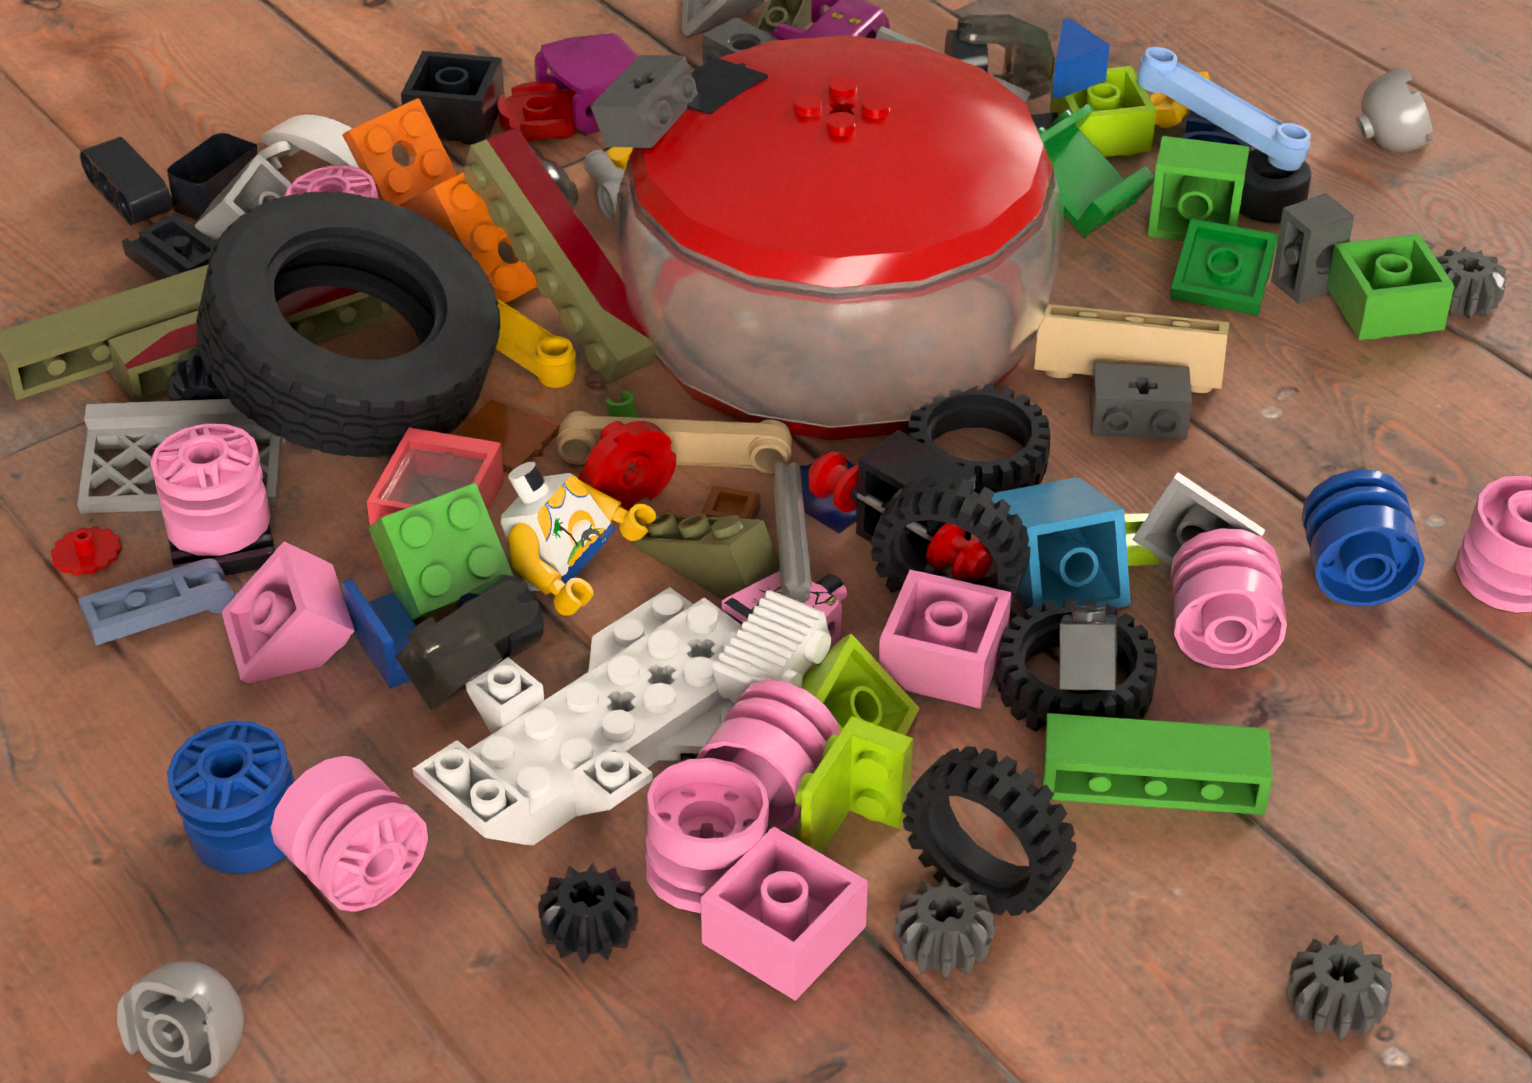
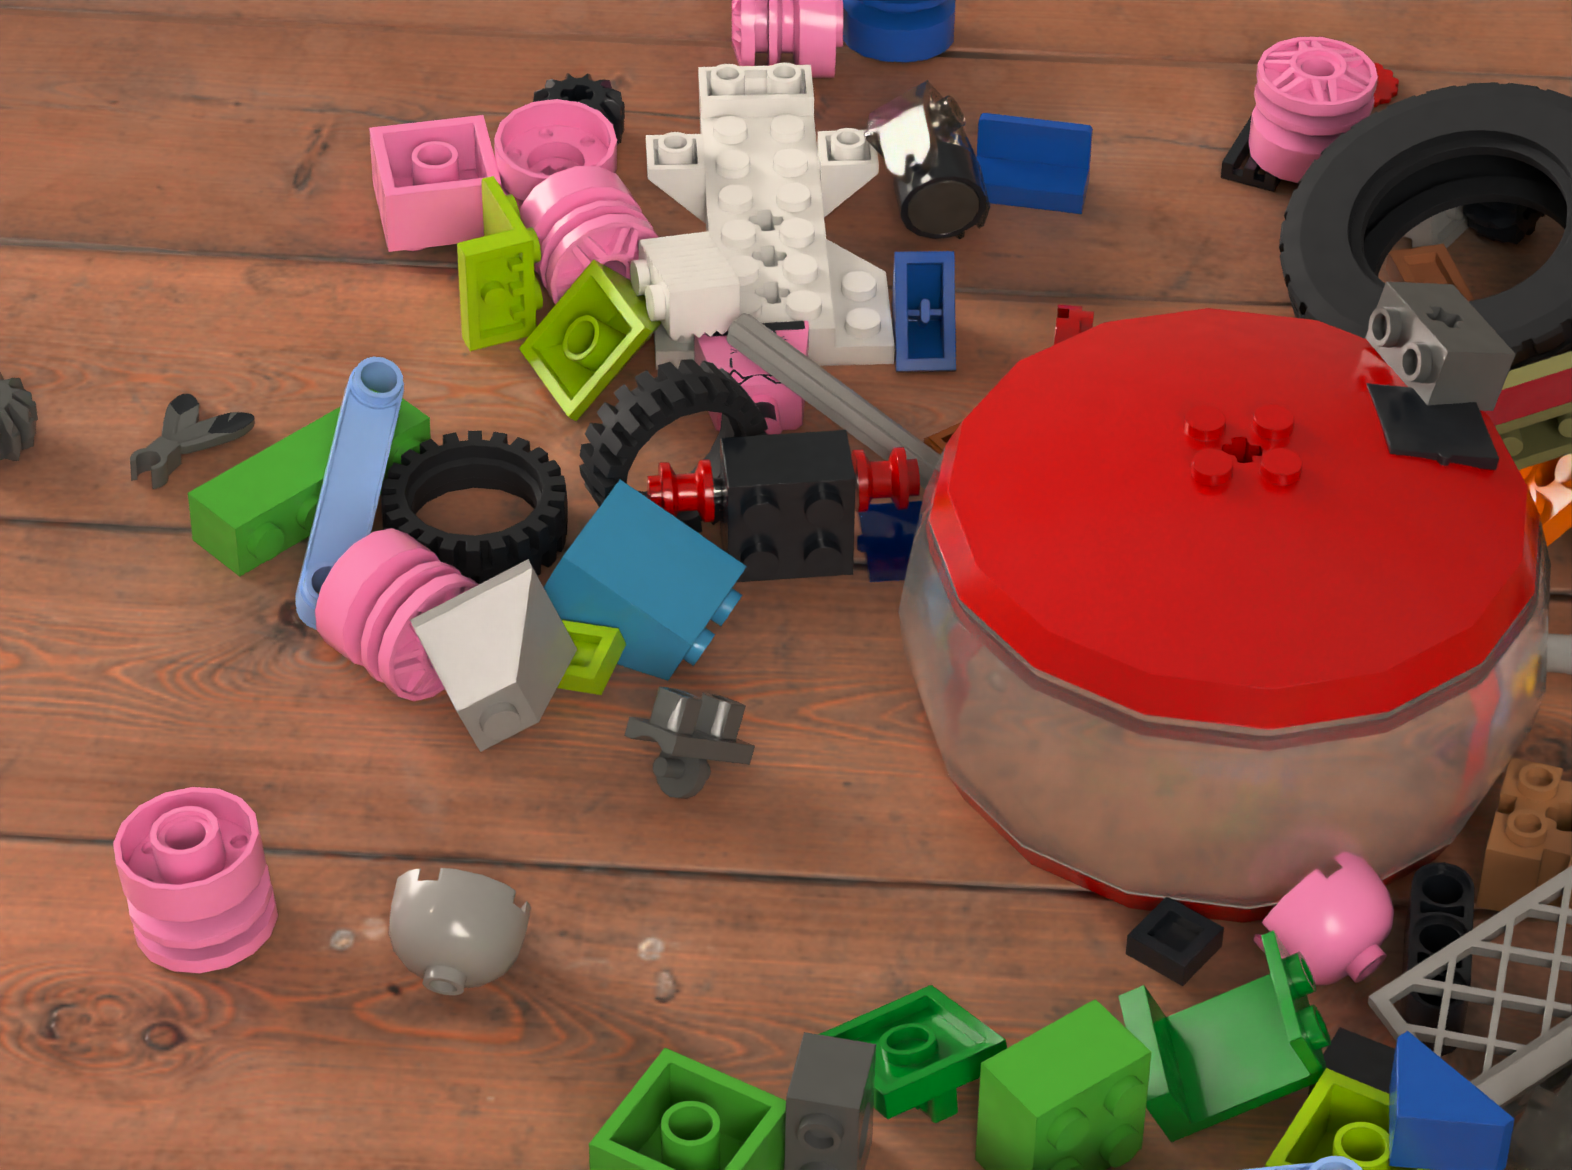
camera: 130 degrees right, 0 degrees up
(156, 600) = (1227, 78): sand blue plate -> none
(287, 616) = (1128, 124): bright pink slope -> none
(434, 465) = (1194, 261): window -> none
(439, 550) = (1067, 195): bright green brick -> none
(559, 529) = (1021, 282): torso -> none
(622, 581) = (924, 311): none -> blue slope
(712, 551) = (906, 381): olive slope -> none
(944, 928) = (321, 267): dark grey gear -> none
(945, 637) = (562, 406): bright pink brick -> none
(995, 412) = (821, 696): black tyre -> none
(1012, 799) = (323, 224): black tyre -> none
(1079, 337) = (846, 843): tan brick -> none
(1088, 649) = (456, 472): brick -> none
(1088, 719) = (351, 475): none -> light blue piece
(1140, 401) = (768, 811): dark grey brick -> none
(1143, 443) = (689, 735): none -> dark grey hips
(1192, 885) = (186, 435): none -> dark grey piece
(1362, 538) = (351, 765): blue wheel -> none
(1388, 436) = (456, 928): none -> light grey cylinder

